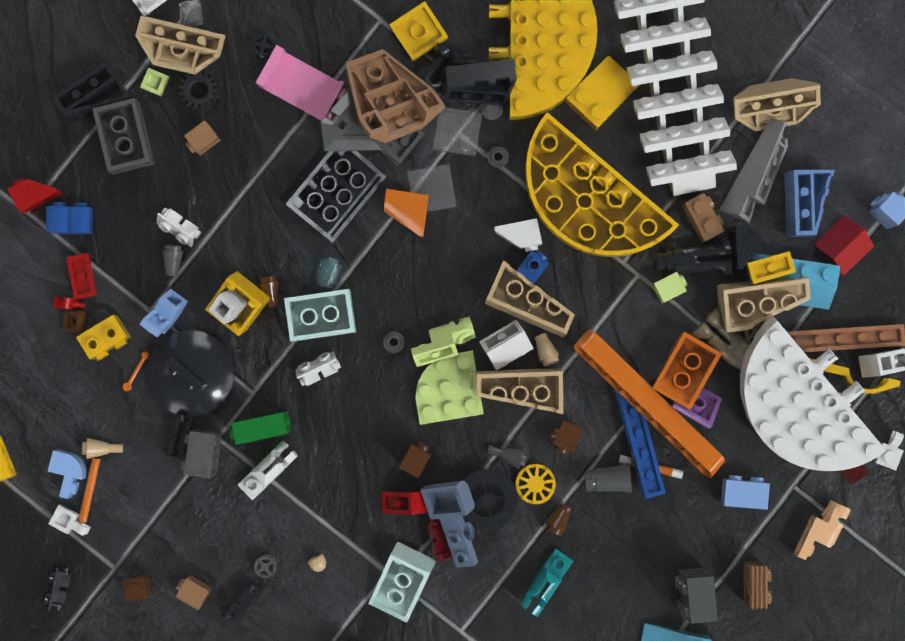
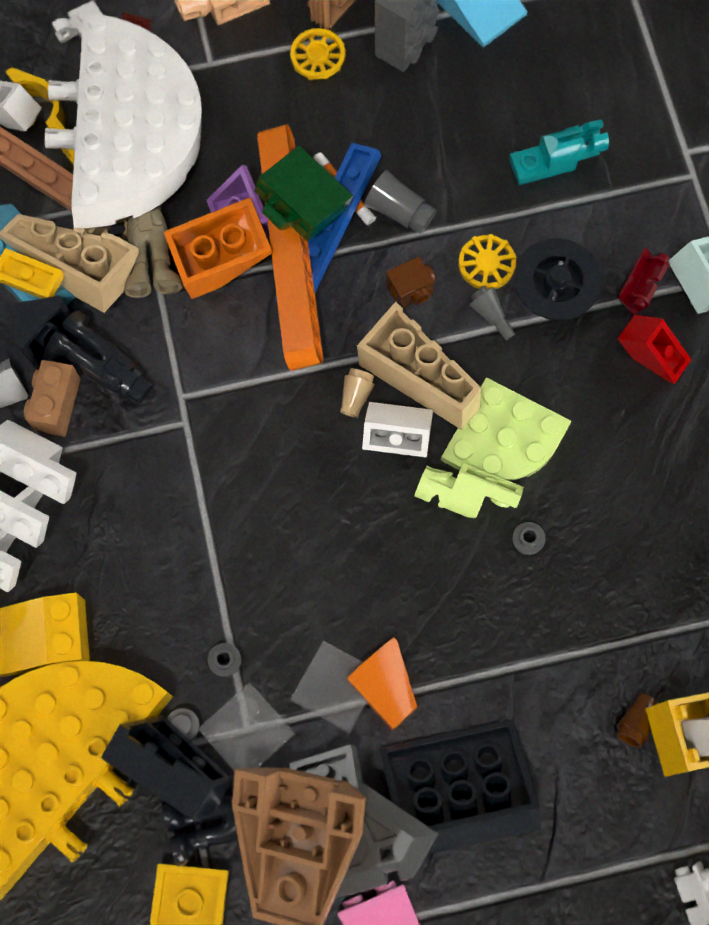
camera: 140 degrees left, 15 degrees down
(308, 371) = (661, 583): white hinge -> none
(320, 315) = (598, 636): light aqua brick -> none
(328, 272) = (547, 683): clear light blue brick -> none
(416, 459) = (609, 380): reddish brown brick -> none
(449, 504) = (606, 292): sand blue plate -> none
(521, 234) = (272, 543): white slope -> none
(528, 302) = (335, 468): tan wedge -> none
(533, 266) = (292, 495): blue brick -> none
(558, 521) = (493, 204): reddish brown cone -> none
(587, 199) = (163, 525): yellow brick -> none
(662, 432) = (301, 194): none -> dark green piece
(670, 287) = (157, 353): yellowish green brick -> none
(736, 541) = (317, 54): none -> yellow wheel
(745, 493) = (267, 85): light blue brick -> none

